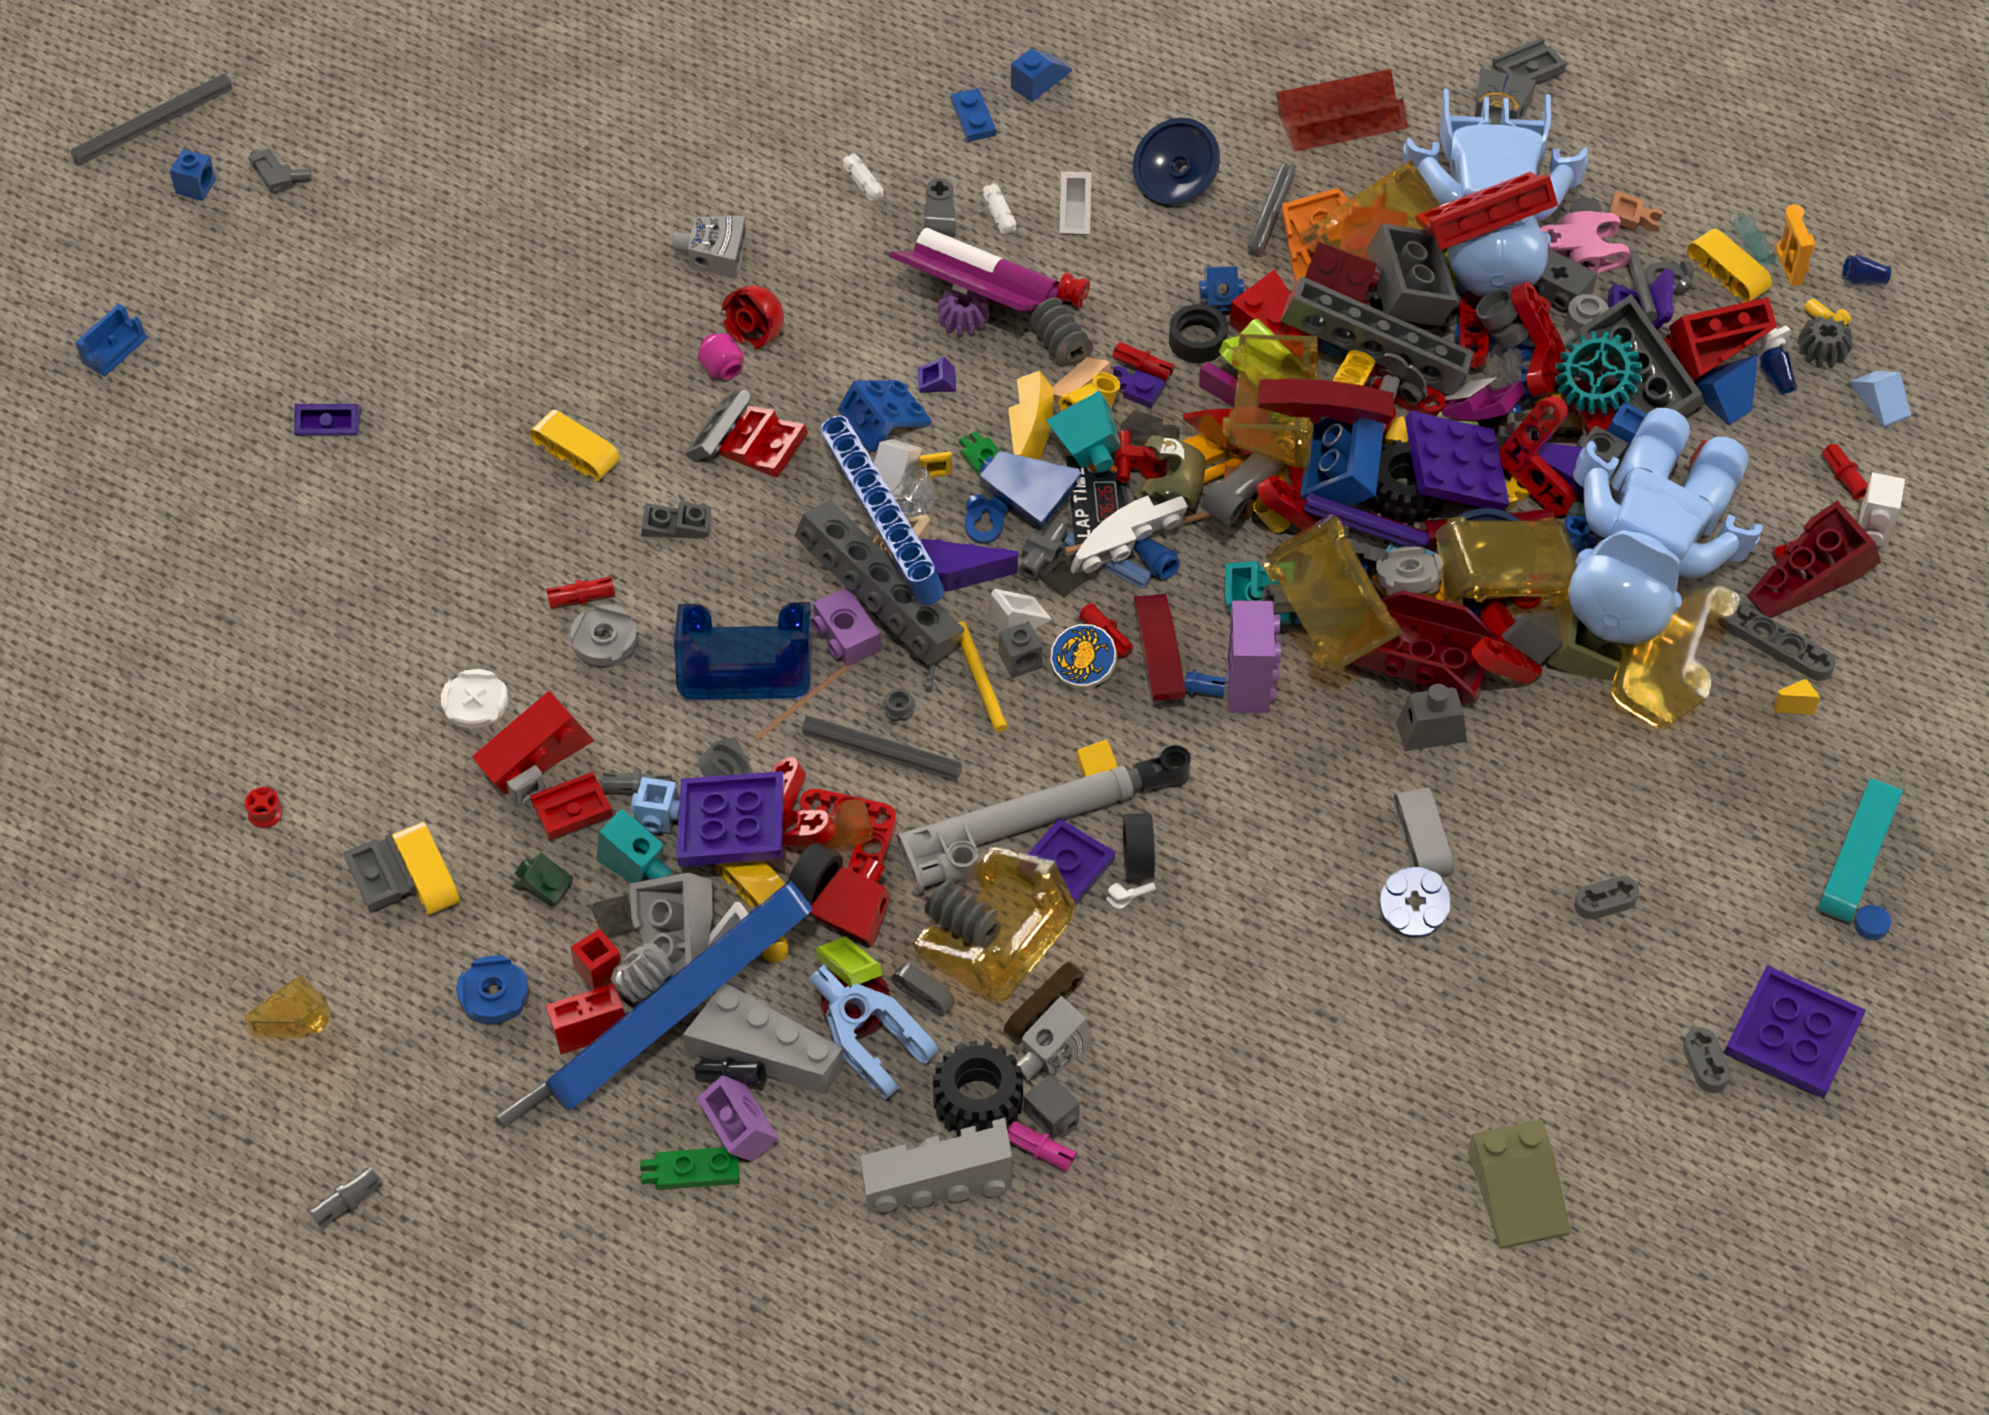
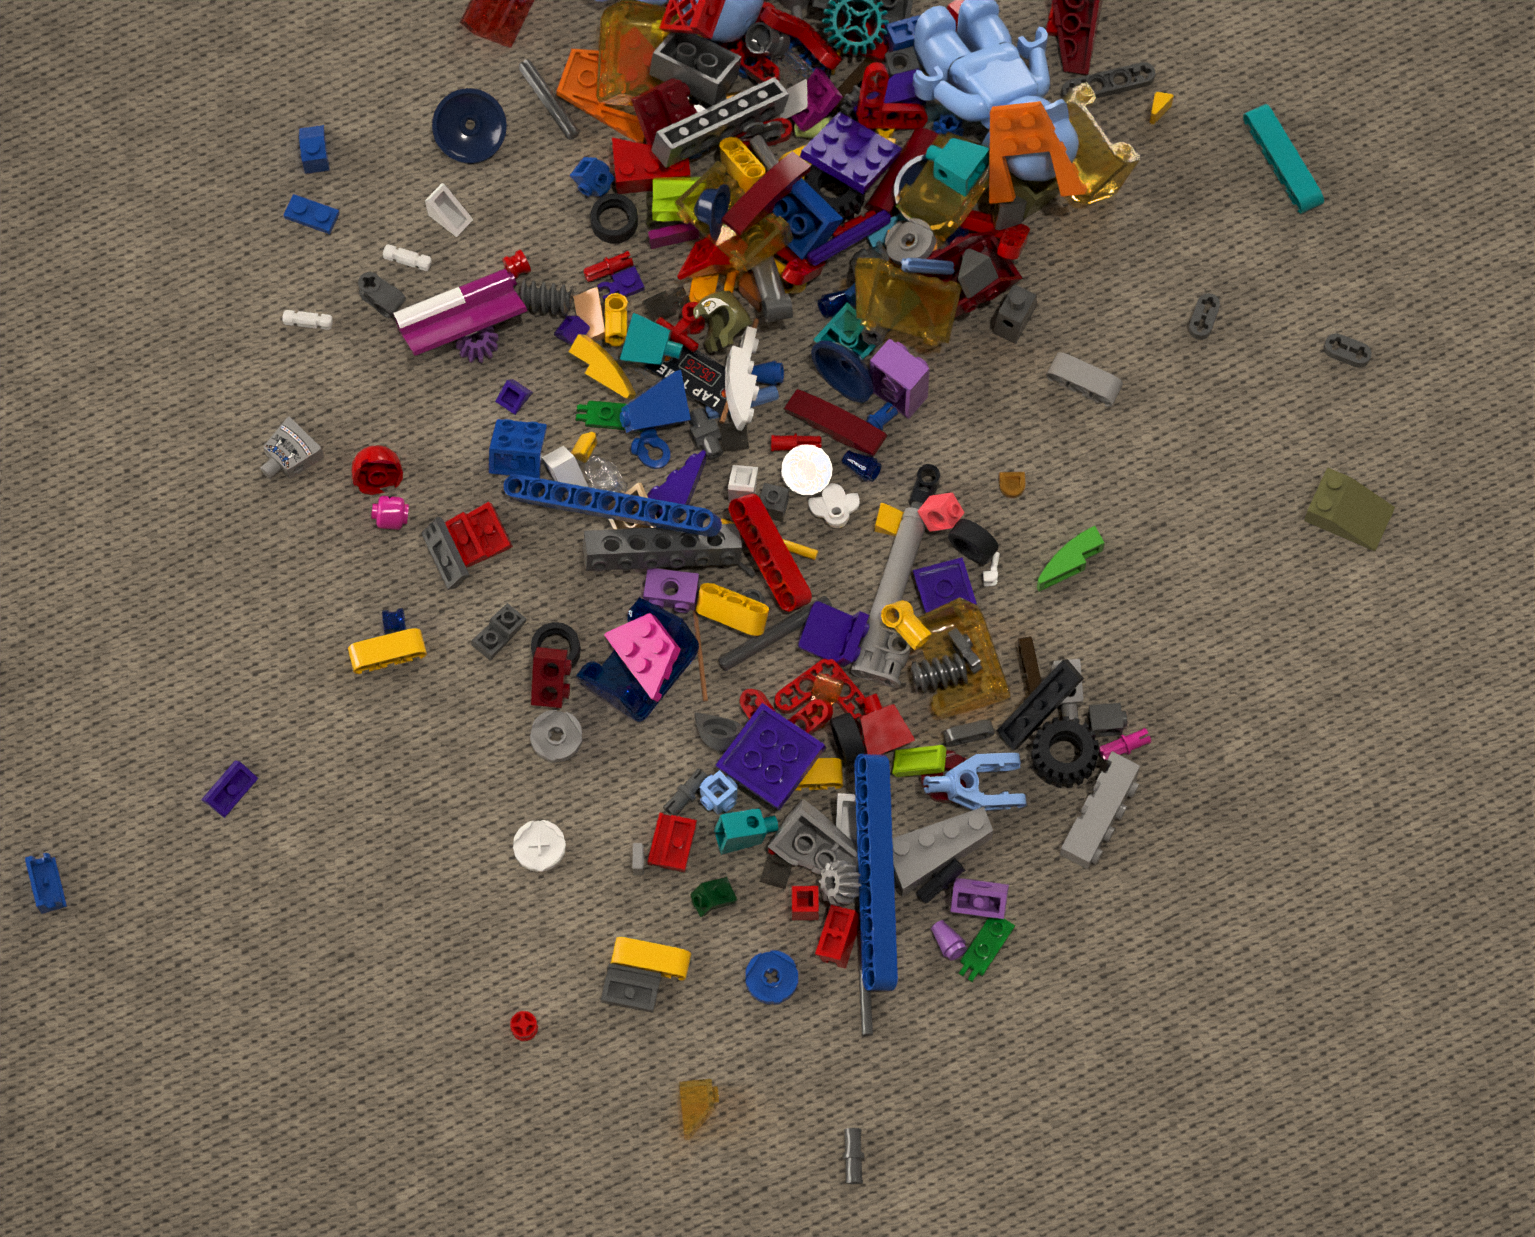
camera: 50 degrees left, 15 degrees up
(537, 737) = (613, 836): red wedge -> none
(580, 592) = (509, 726): red pin -> none
(611, 430) = (393, 621): none -> clear blue wheel
(655, 582) = (547, 677): none -> dark red brick
(667, 1126) = (948, 940): none -> medium lavender cone
(699, 594) = (559, 629): none -> black tyre
(752, 641) = (646, 651): none -> wing
(869, 688) = (732, 609): none -> yellow beam
(922, 791) = (833, 633): none -> dark purple bracket
(958, 677) = (770, 552): none -> red beam
(988, 833) = (907, 624): none -> yellow piece
(1005, 1021) = (1040, 704): none -> black plate
(1011, 915) = (962, 646): none -> dark grey plate
(1052, 372) = (571, 328): none -> dark purple slope
(1069, 707) = (834, 501): none -> white plate
(1135, 705) = (864, 466): none -> clear blue cone
(1142, 793) = (941, 512): none -> coral brick
(1206, 951) = (1071, 558): none -> bright green slope
(1216, 605) = (843, 370): none -> dark blue dish
(1244, 848) = (1012, 483): none -> pearl gold tile
(1264, 364) = (712, 207): none -> dark blue piece
(1393, 593) = (927, 266): none -> medium blue axle
(1425, 638) = (975, 272): none -> dark grey slope
(1427, 886) = (1114, 421): plate -> none
(1529, 541) = (959, 164): none -> teal torso
(1605, 546) = (1026, 130): none -> orange wing
(1795, 1031) = (1367, 290): dark purple plate -> none
(1872, 922) = (1332, 191): blue tile -> none

